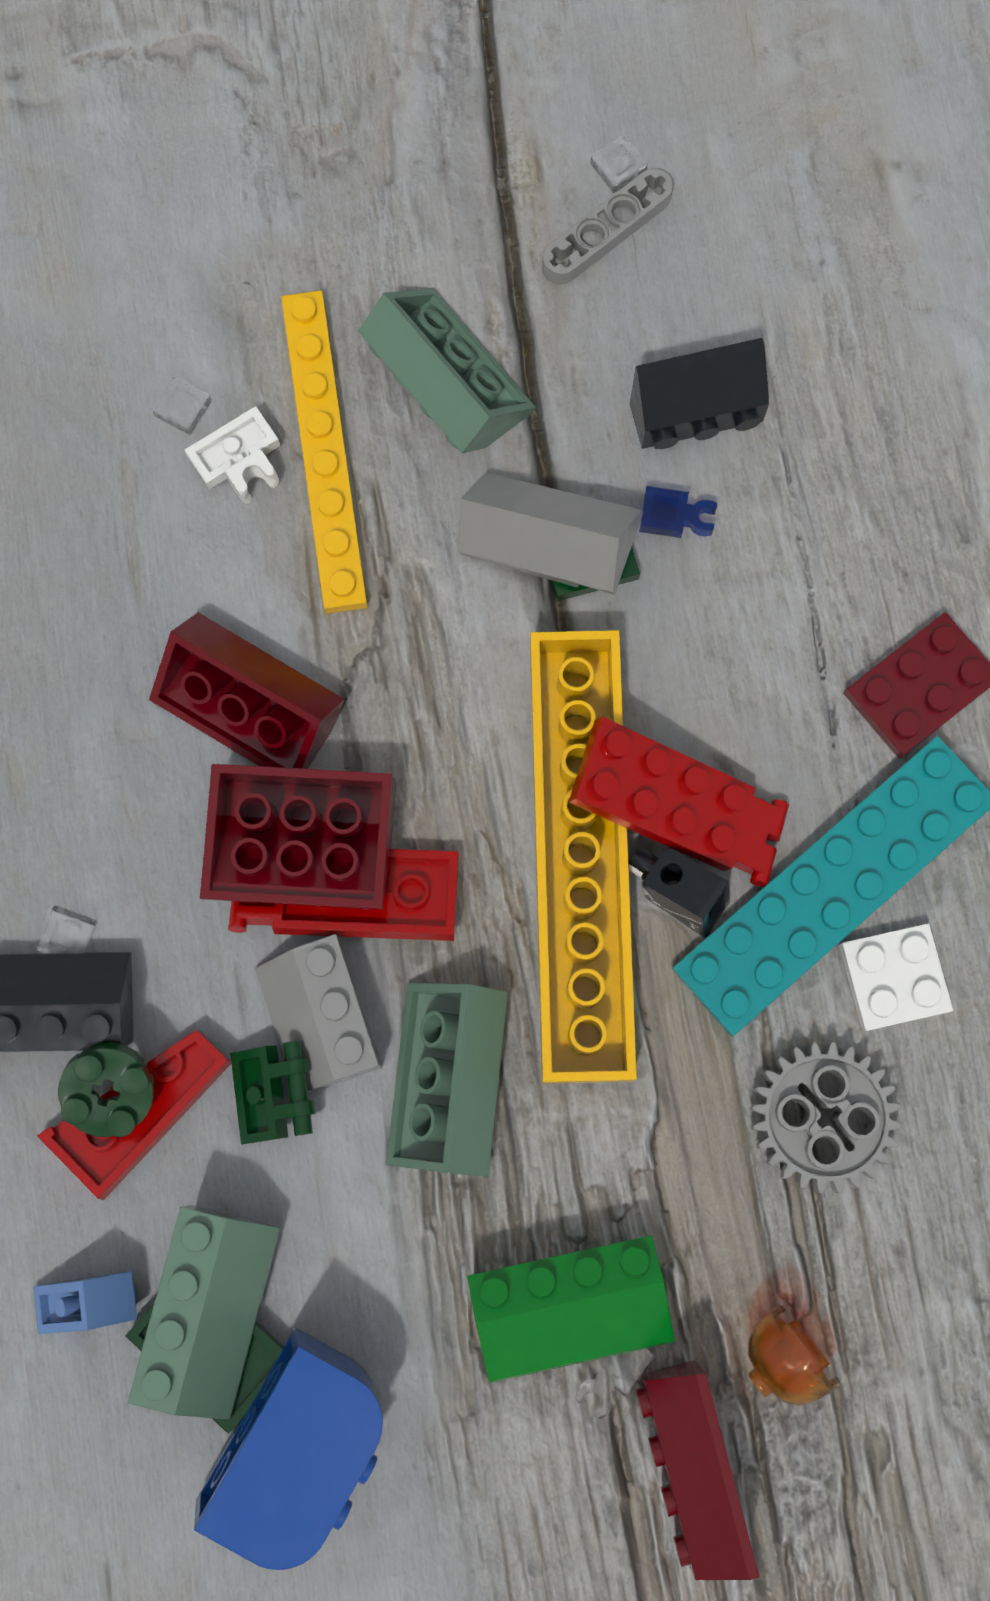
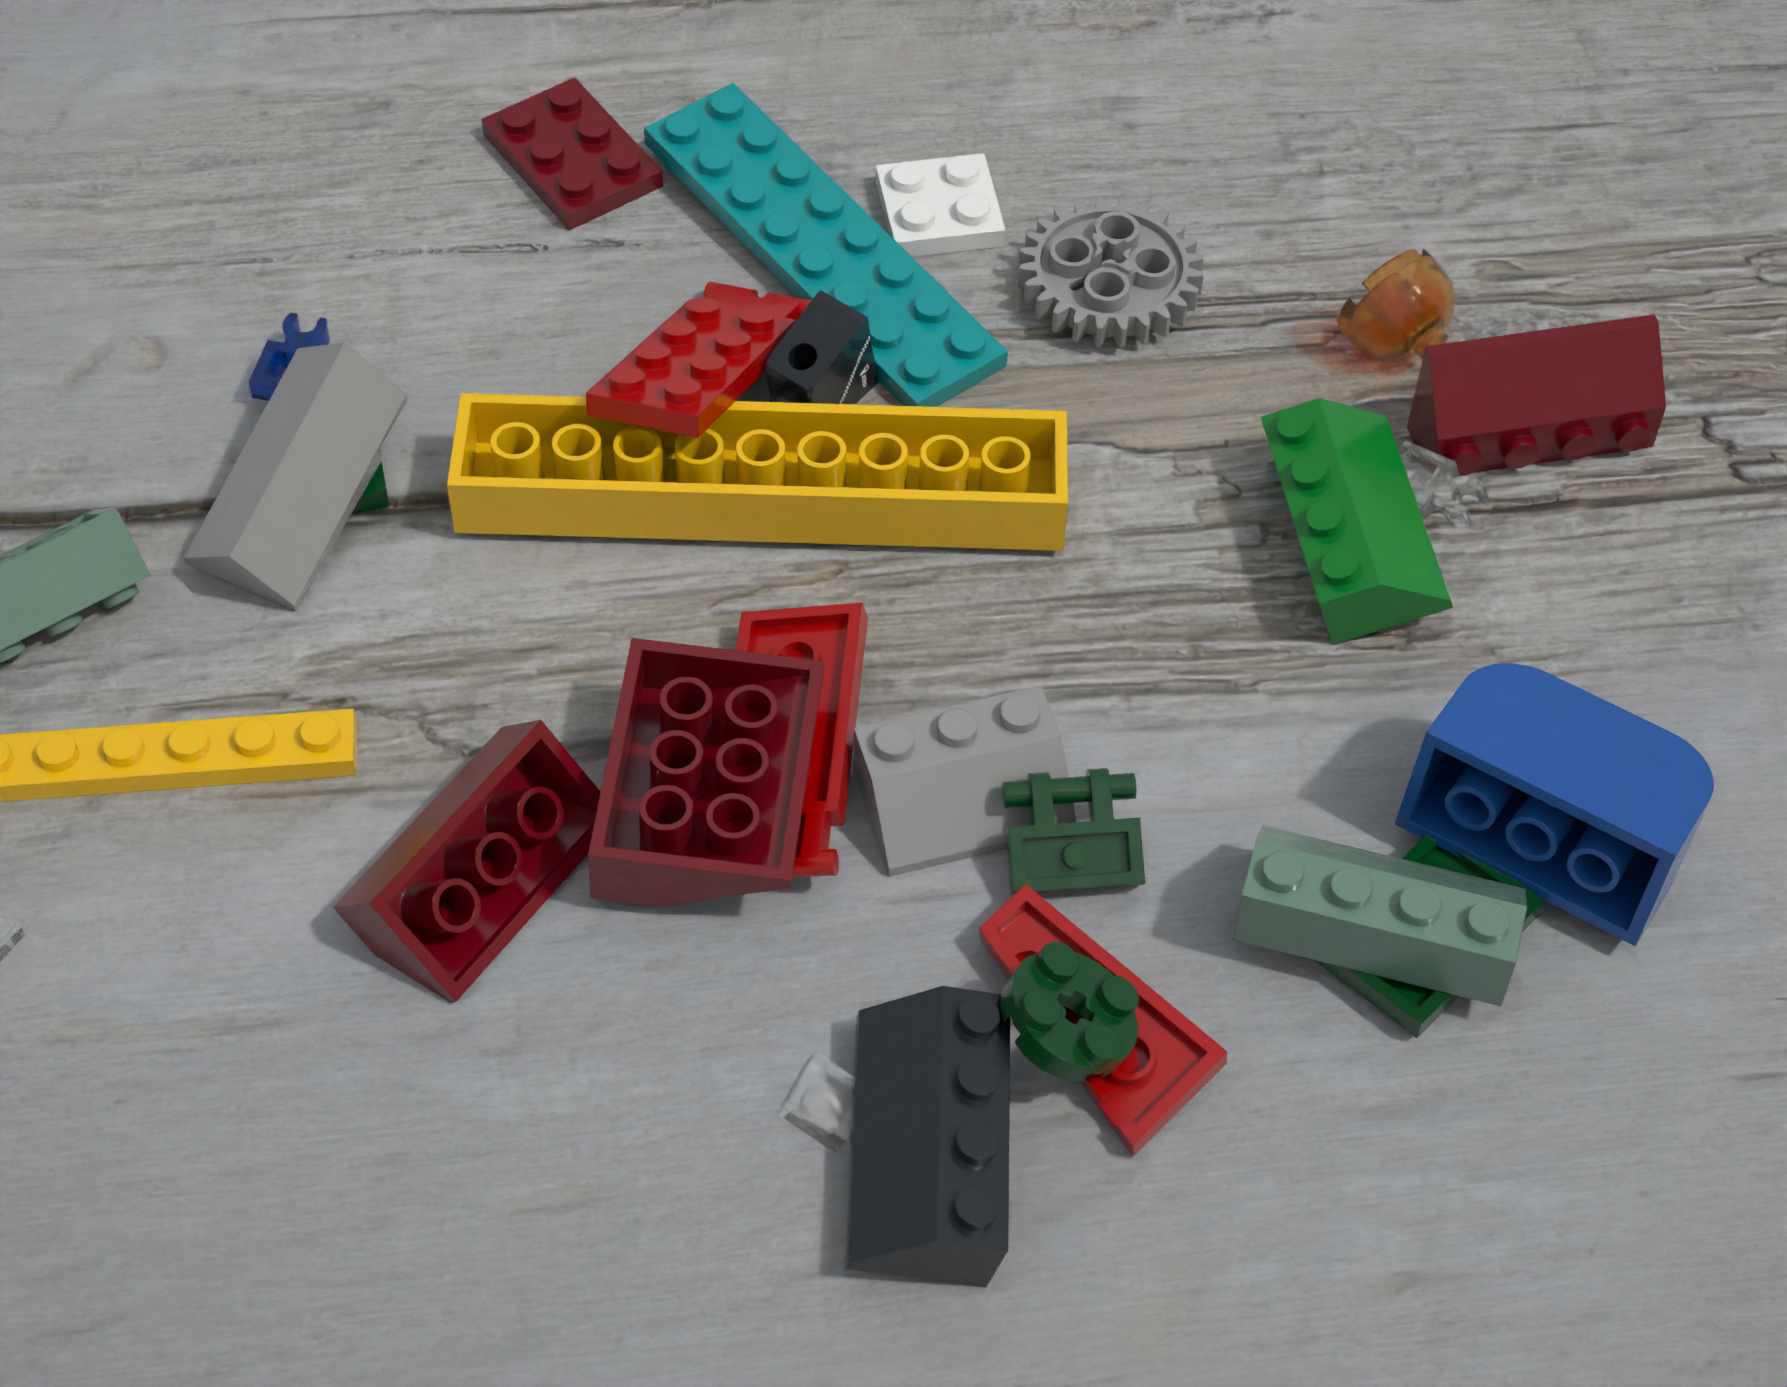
camera: 90 degrees left, 25 degrees down
(85, 1303) = (1378, 1082): medium blue slope -> none
(237, 454) = (84, 865): white plate -> none
(447, 1078) = (1081, 640): sand green slope -> none
(700, 394) = (136, 313): black slope -> none

